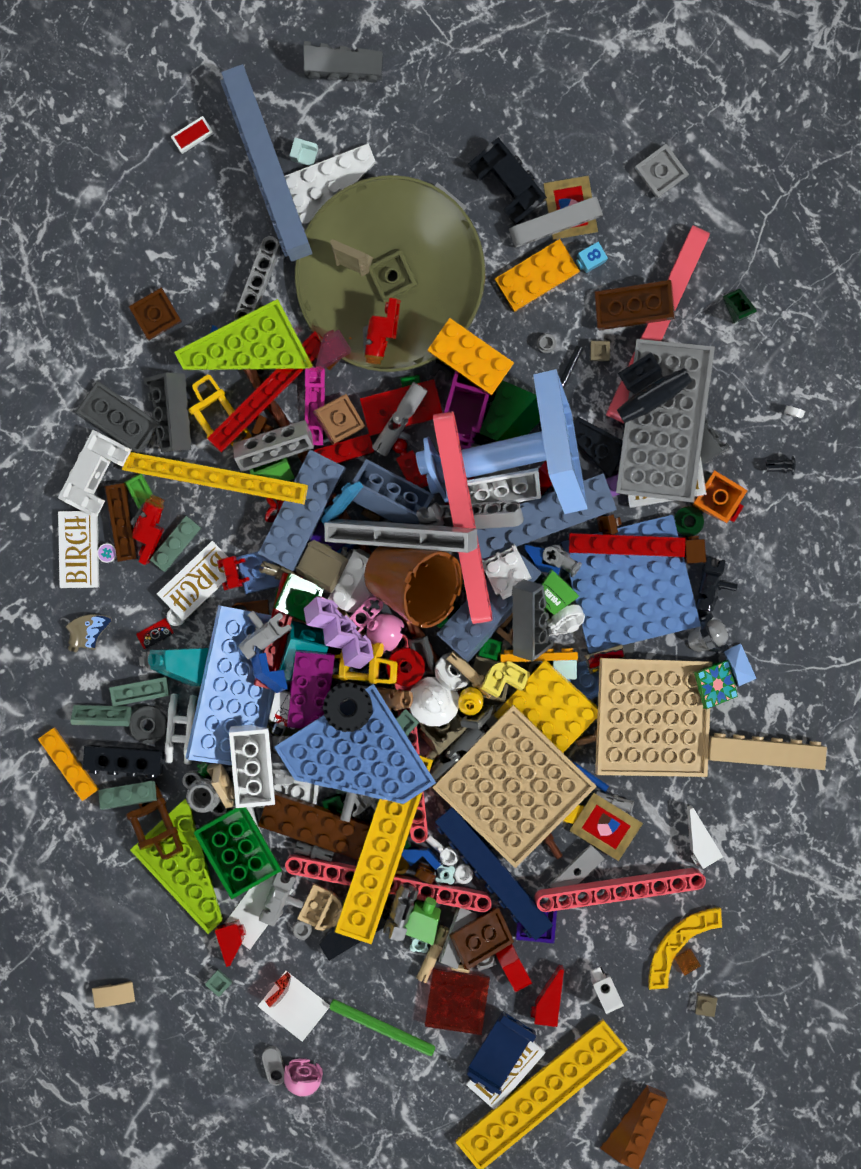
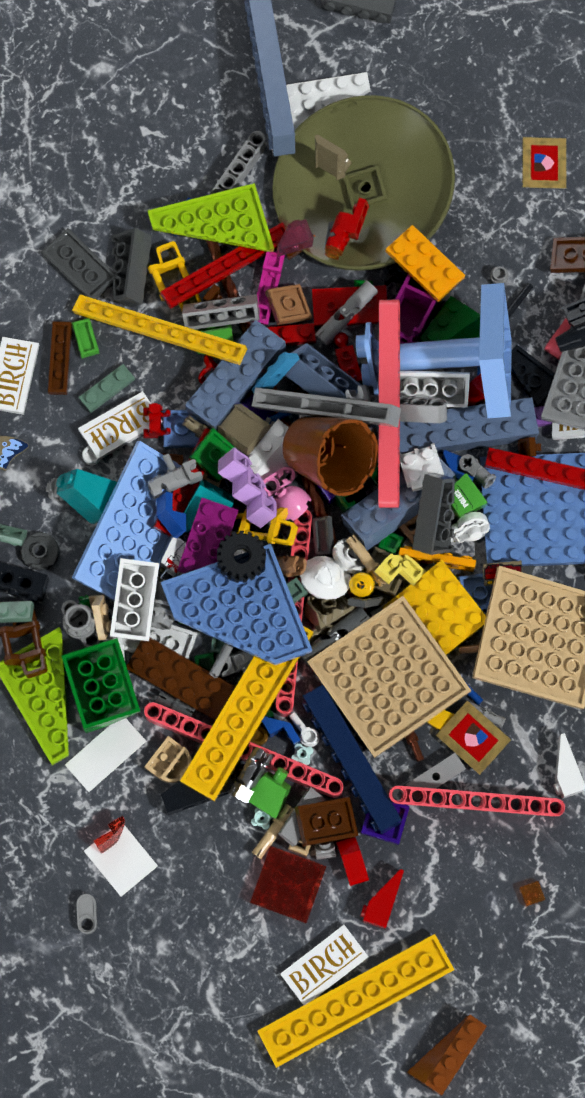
camera: 10 degrees right, 15 degrees down
(89, 471) = (42, 303): white bracket -> none
(107, 553) = (39, 384): tile -> none
(139, 691) = (40, 517): sand green plate -> none
(145, 527) = (82, 365): red plate -> none
(154, 633) = (65, 466): sticker -> none
(155, 314) = (136, 180): reddish brown plate -> none
(172, 719) = (60, 566): white piece -> none
(192, 134) = (206, 36): tile -> none
(218, 983) = (50, 816): sand green plate -> none
(230, 939) = (73, 775): red slope -> none
(278, 898) = (130, 742): light grey piece -> none
(302, 930) = (146, 781): light grey tile -> none
(302, 1077) = (112, 930): bright pink cylinder -> none
(303, 152) = (305, 68): light aqua panel -> none
(382, 1027) = (206, 897): bright green axle -> none
(417, 666) = (316, 542): red tile -> none
(425, 873) = (283, 744): reddish brown piece -> none
(463, 873) = (320, 758): white tile -> none
(500, 1052) = (322, 944): dark blue panel -> none
(513, 177) = (495, 123): black bracket -> none
(537, 275) = (501, 214): light orange plate -> none
(555, 222) = (528, 170): light grey beam -> none
(567, 668) = (462, 573): light aqua panel -> none
(591, 257) = (556, 207): medium azure brick -> none
(600, 351) = (548, 291): dark tan plate -> none
(610, 998) = (444, 909): white torso -> none
(675, 940) = (523, 868): yellow tile -> none
(705, 1005) = (543, 942): dark tan plate -> none

